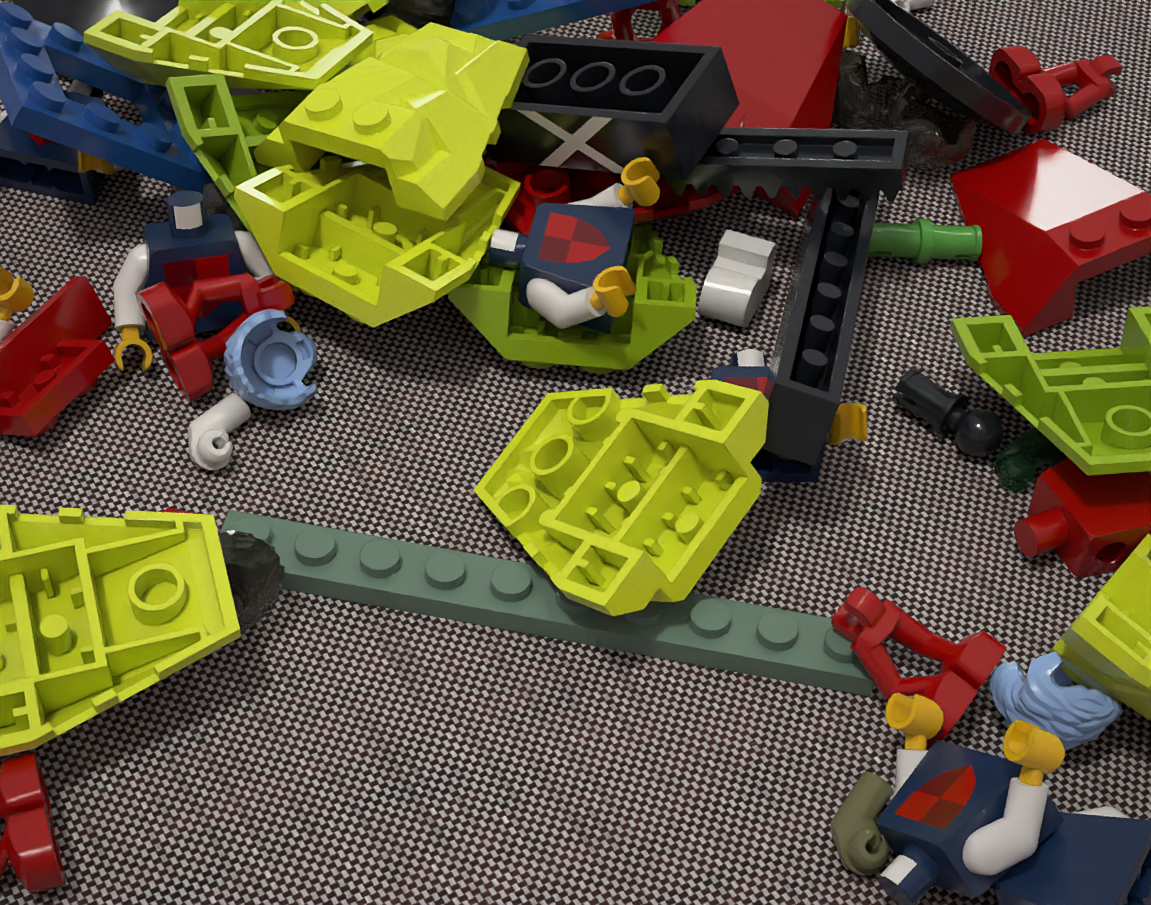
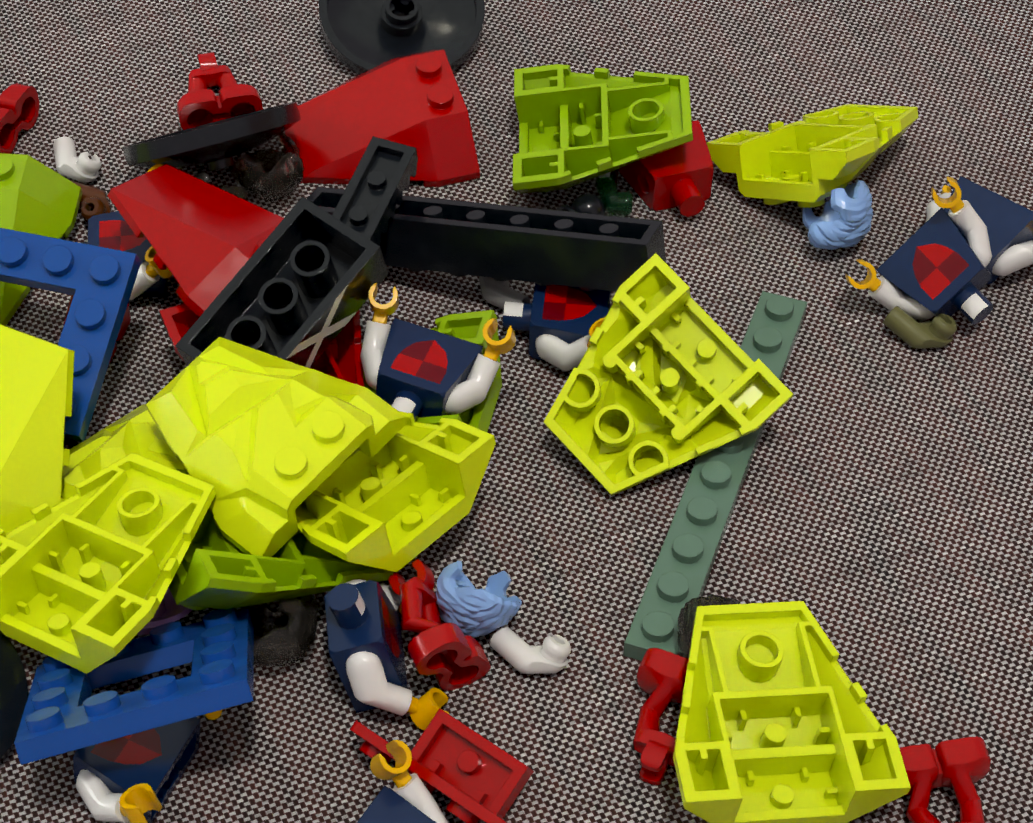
camera: 80 degrees left, 0 degrees up
(737, 278) = (415, 304): white leg -> none
(963, 666) = (808, 252): red piece -> none

